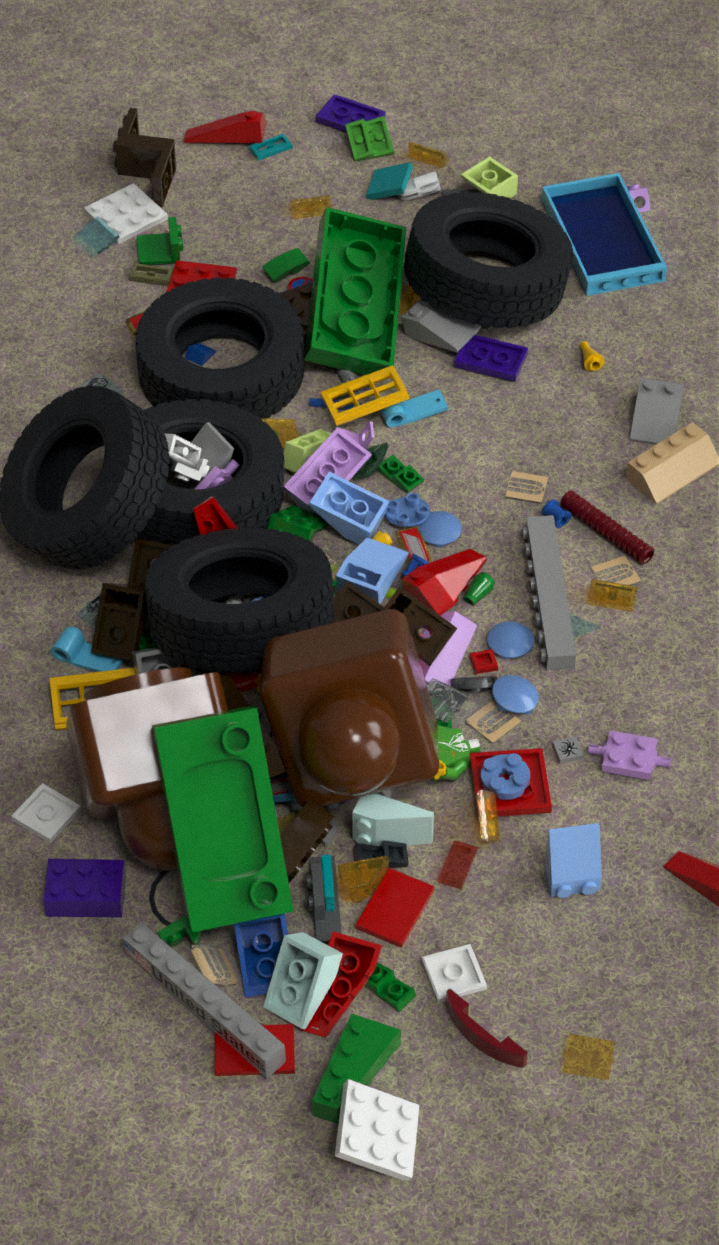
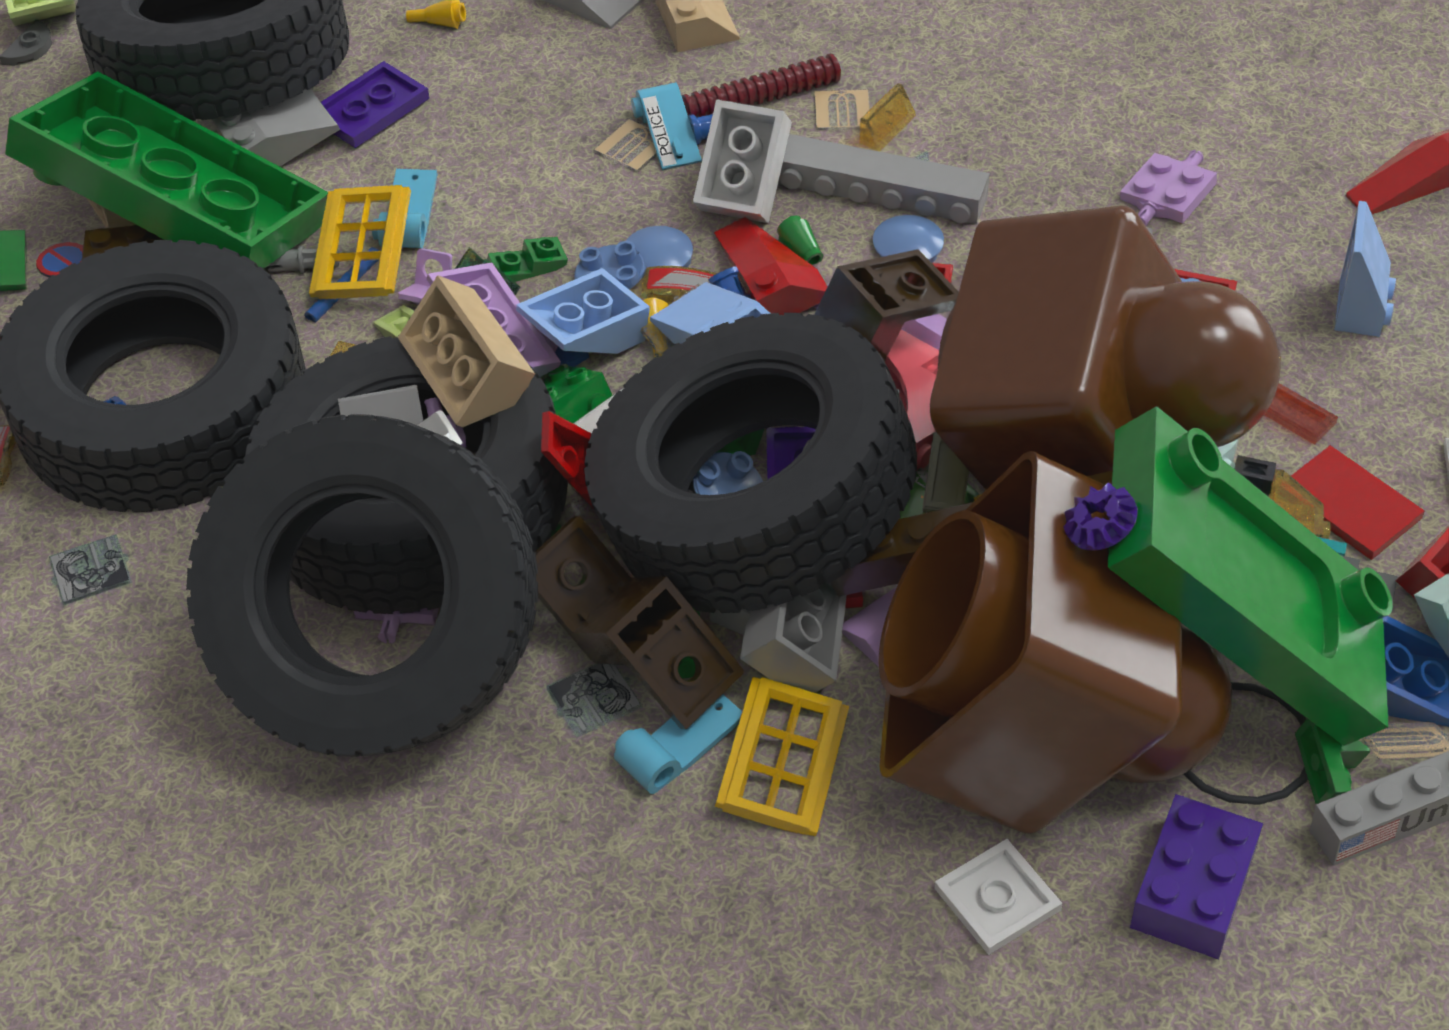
camera: 65 degrees left, 0 degrees up
(176, 709) = (1097, 532): none -> dark purple gear
(259, 456) = (464, 353): none -> tan slope
(512, 532) = (742, 161): none -> white brick
(552, 487) = (668, 124): none -> medium azure door

